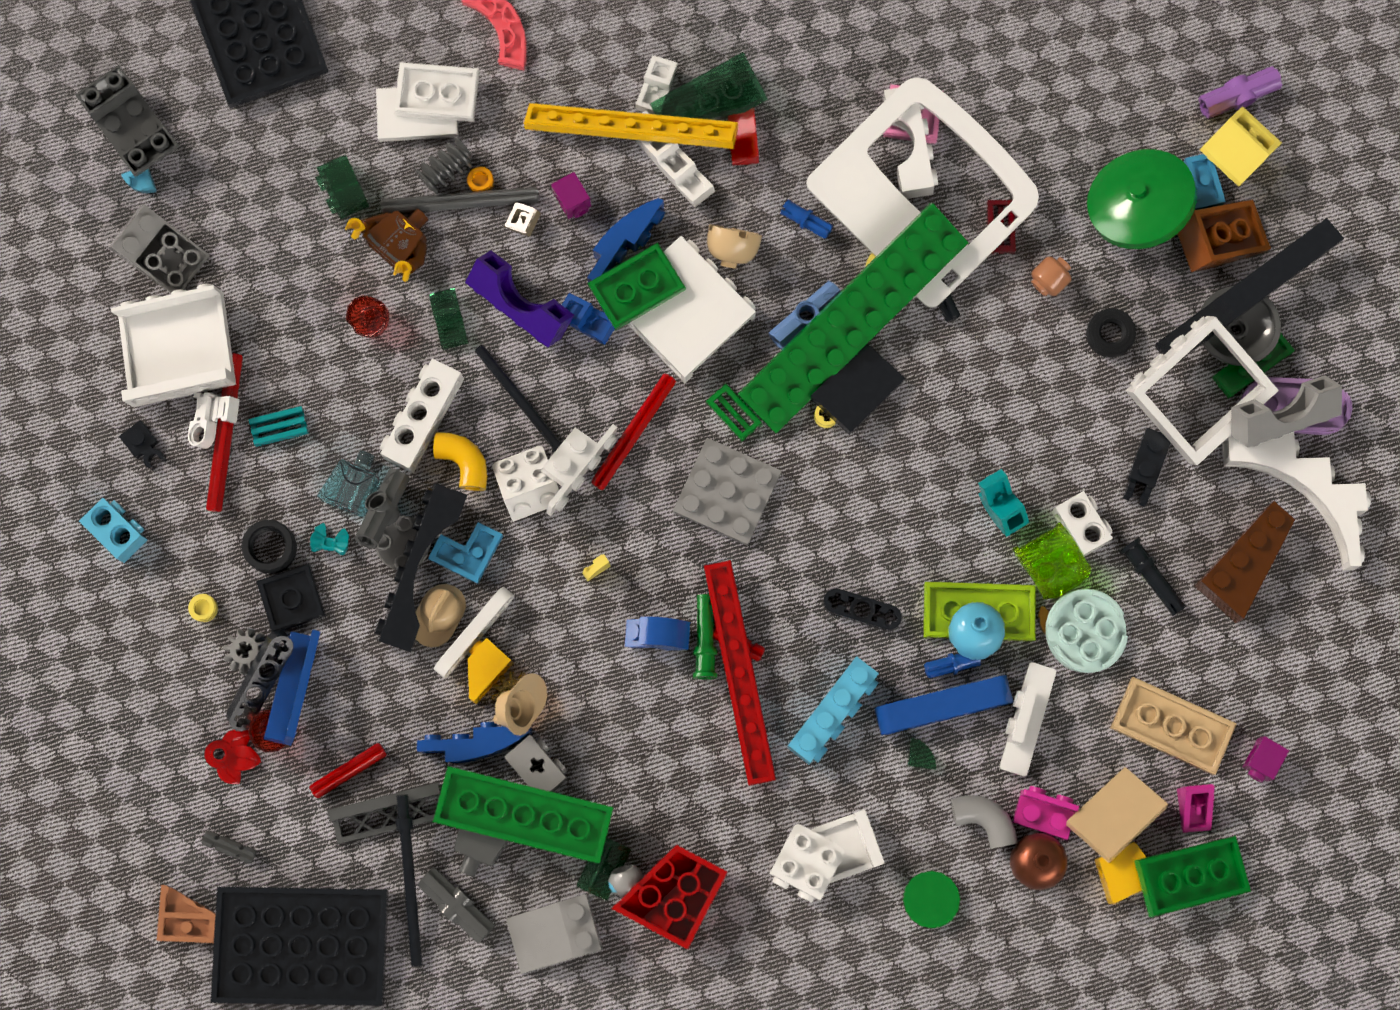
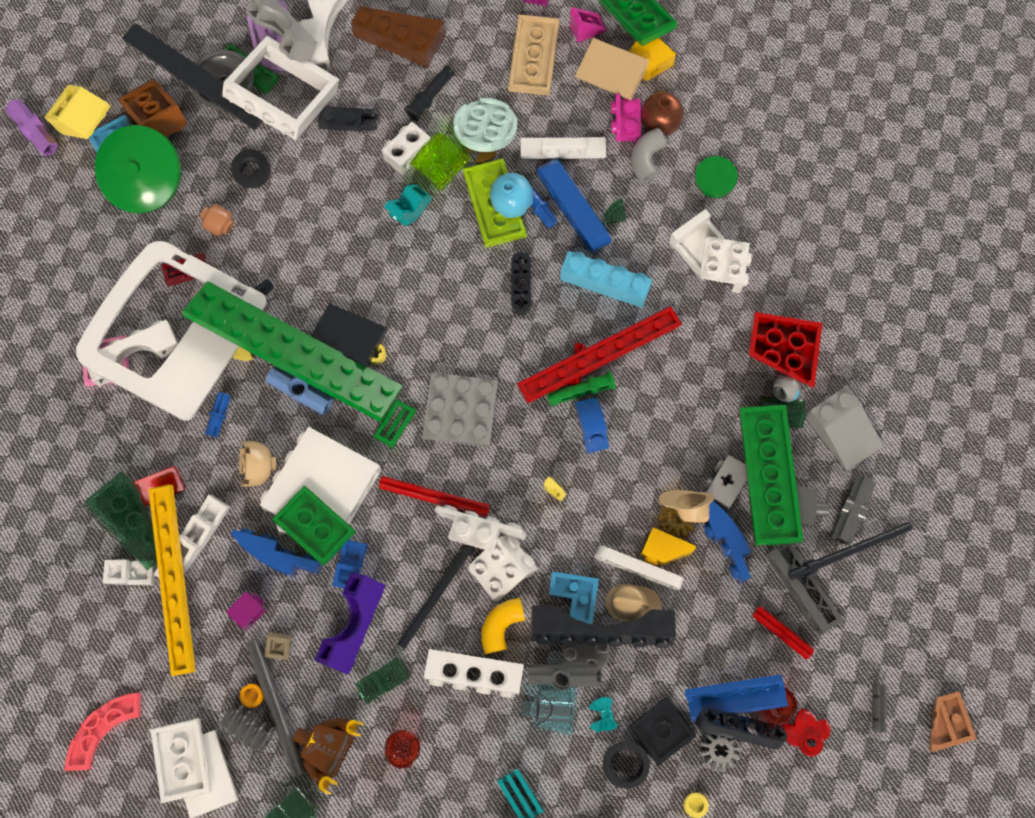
camera: 110 degrees left, 5 degrees down
(300, 946) = (932, 622): black plate -> none

